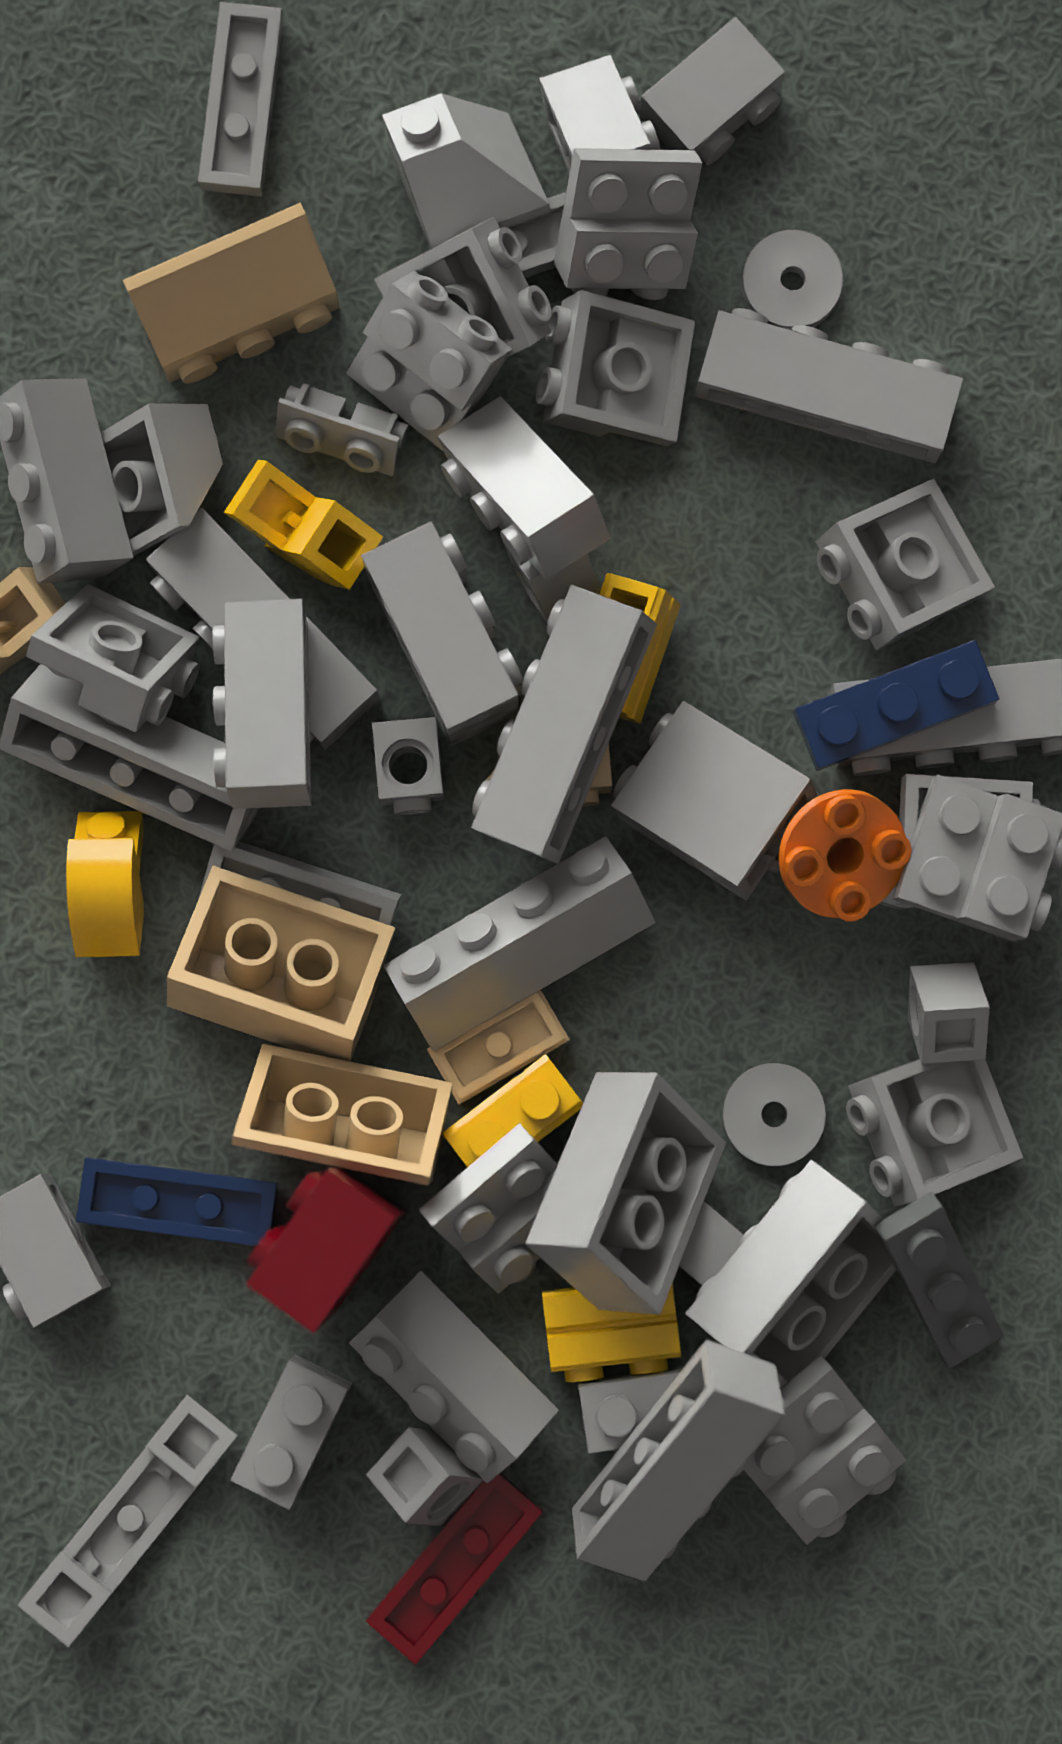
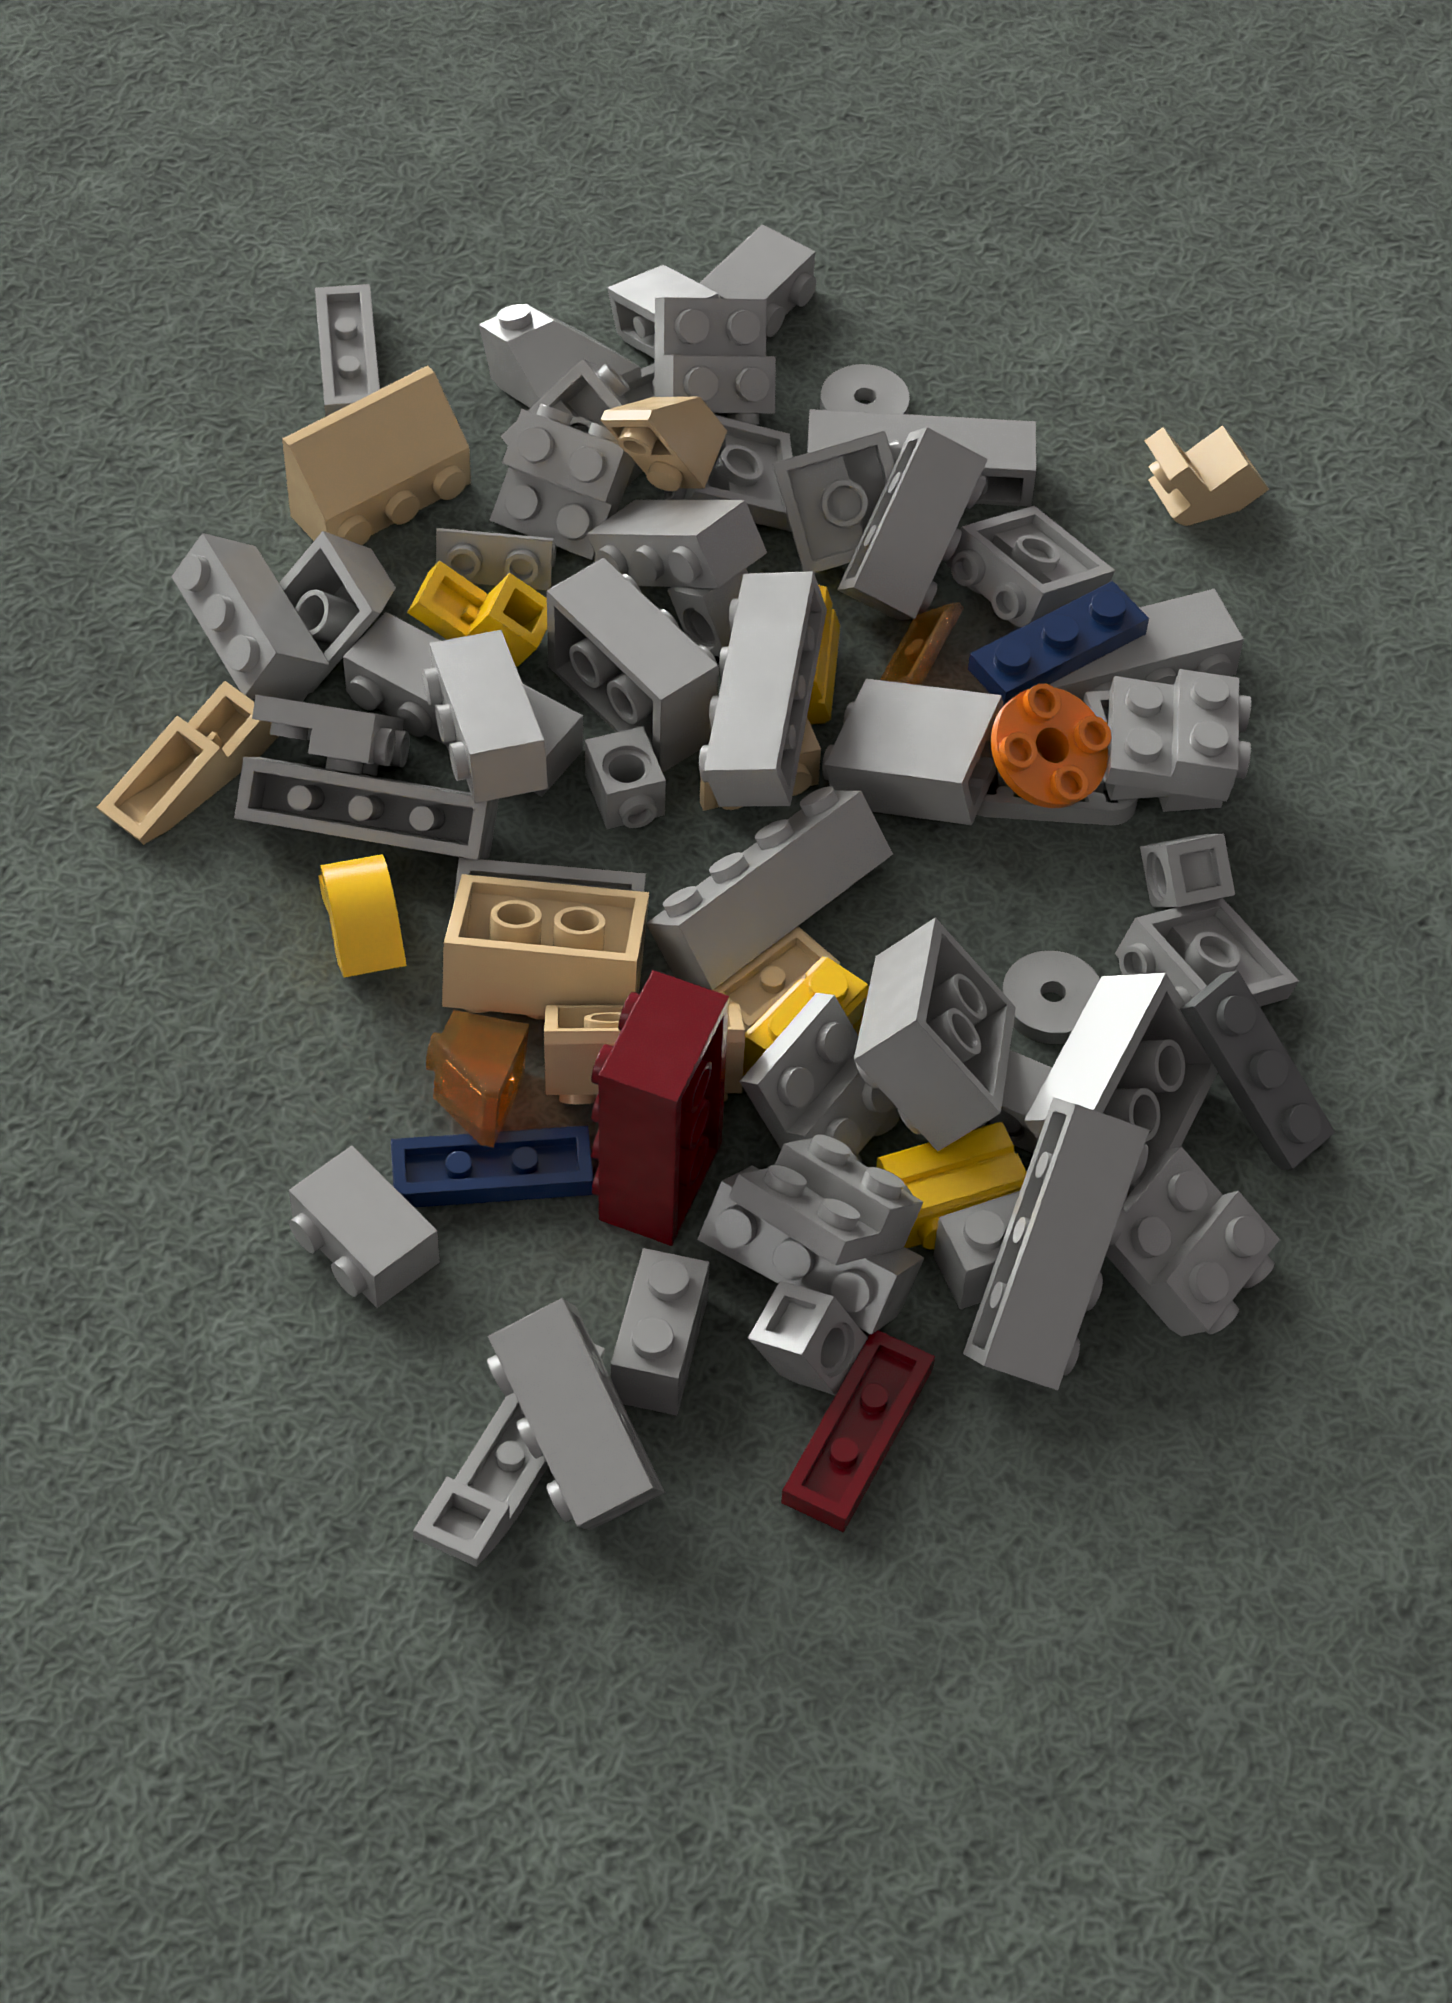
camera: 15 degrees left, 30 degrees down
(181, 1103) = (478, 1071): none -> clear orange slope
(187, 1521) = (573, 1416): none -> light grey brick
(470, 1364) = (830, 1201): none -> light grey plate
(539, 358) = (669, 439): none -> tan slope
(726, 453) = (833, 496): none -> light grey plate
(750, 668) = (922, 645): none -> clear orange slope
(783, 515) = (914, 525): none -> light grey brick

